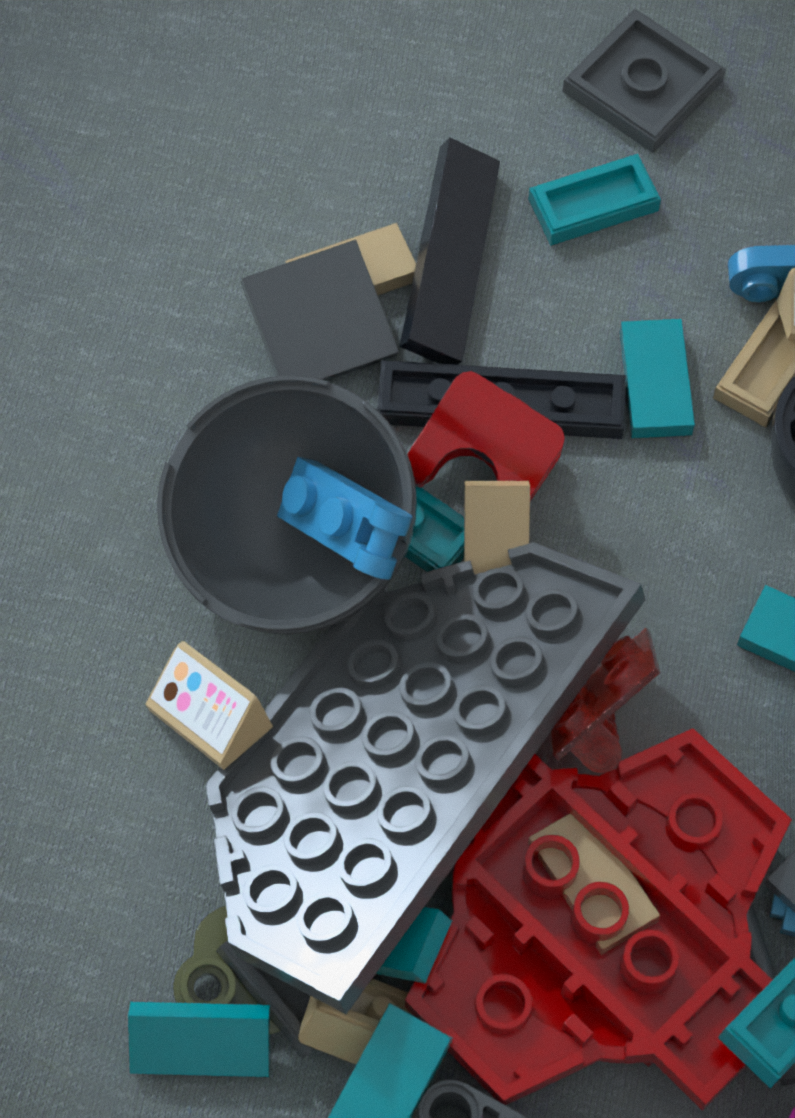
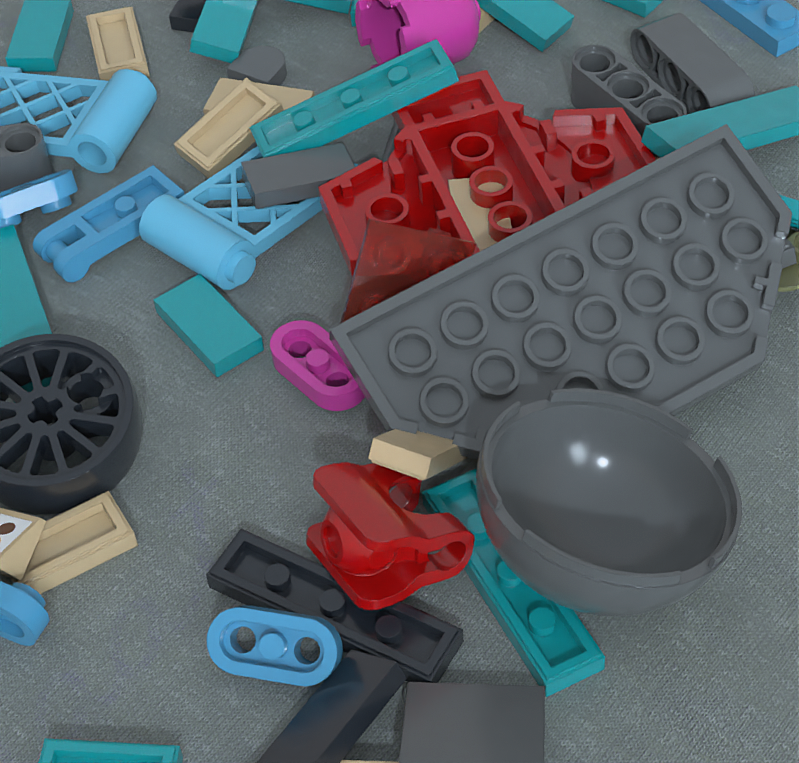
camera: 150 degrees left, 15 degrees down
(207, 706) = (740, 418): slope -> none
(344, 517) = (557, 461): dark azure plate -> none
(522, 331) = (277, 645): none -> dark azure plate
(656, 378) = (176, 570): teal tile -> none
(675, 616) = (319, 374): none -> dark pink plate

